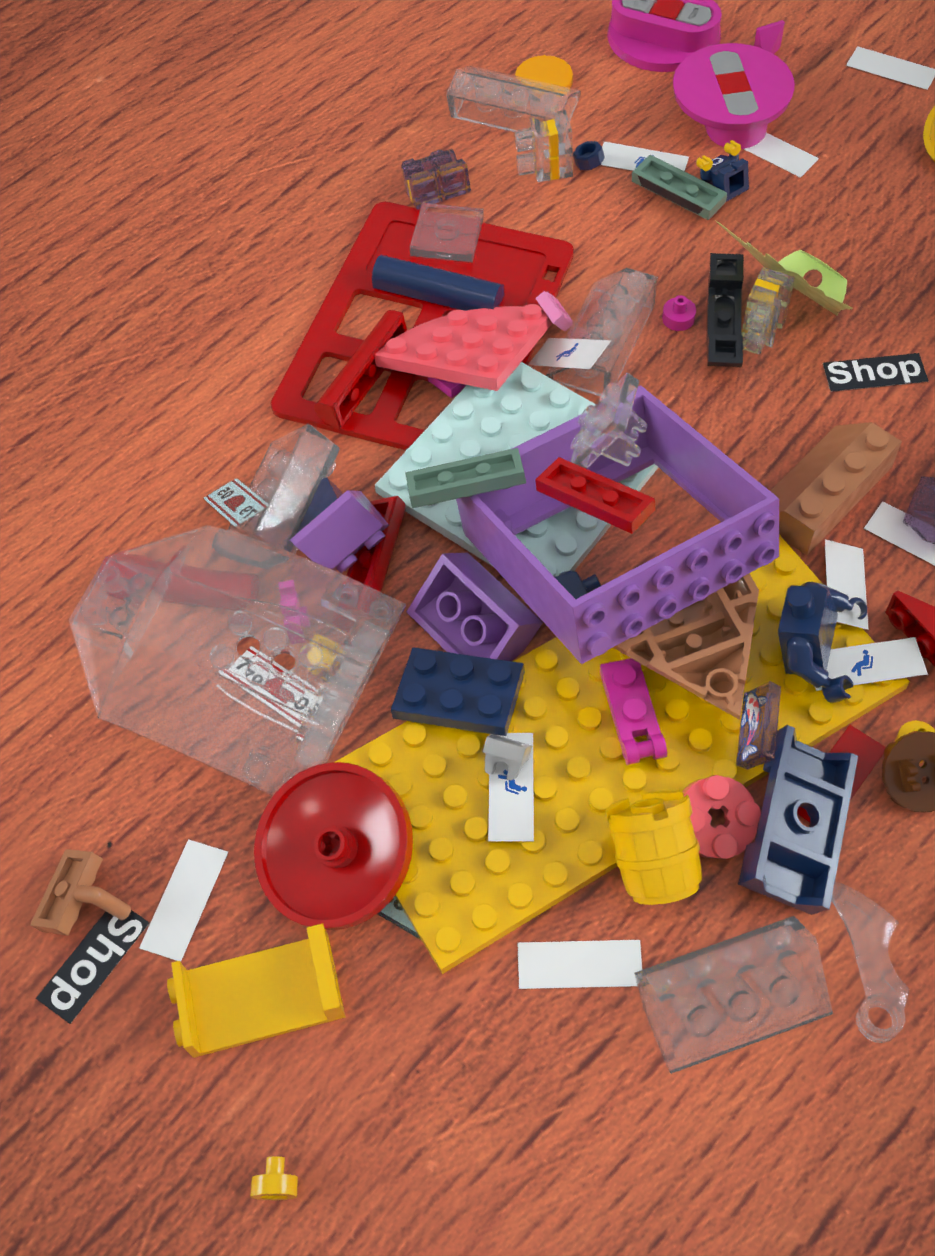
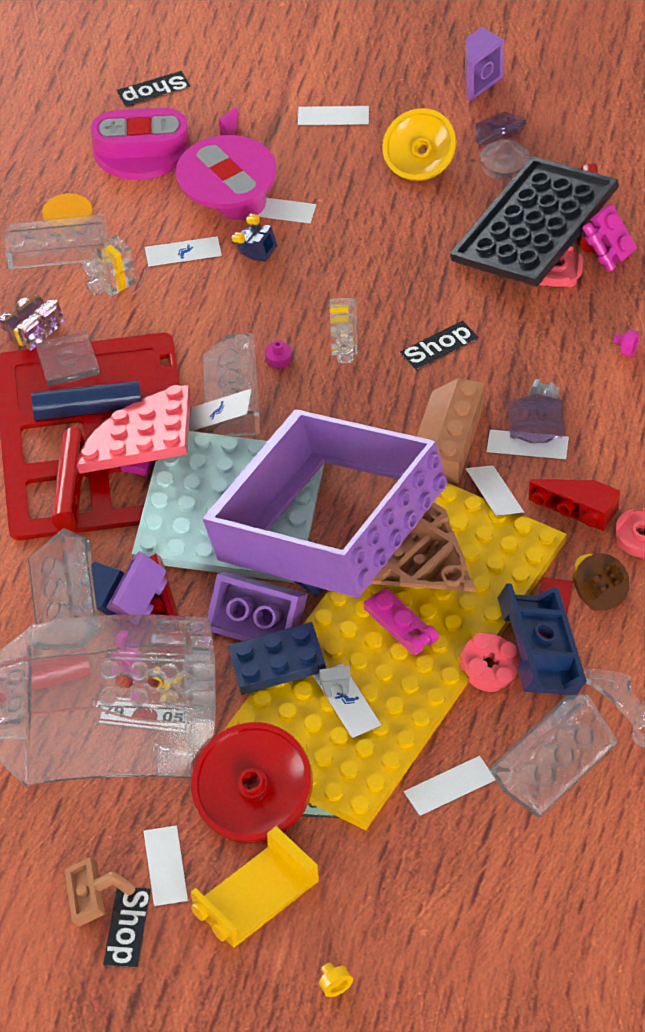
camera: 30 degrees left, 10 degrees down
(236, 502) = (37, 604): clear light blue sticker -> none
(465, 478) = (216, 511): sand green plate -> none
(554, 310) = (189, 385): bright pink tile -> none
(588, 155) = (143, 262): dark blue tile -> none
(595, 495) = (312, 486): red plate -> none
(610, 426) = (296, 440): clear plate -> none
(656, 847) = (463, 689): yellow piece -> none
(679, 187) = (225, 262): sand green plate -> none
(725, 310) = (310, 340): black slope -> none
(758, 725) = (488, 595): tile -> none
(808, 634) = (489, 526): dark blue torso -> none
(830, 291) = (378, 300): yellowish green piece -> none
(877, 661) = (533, 533): white sticker -> none

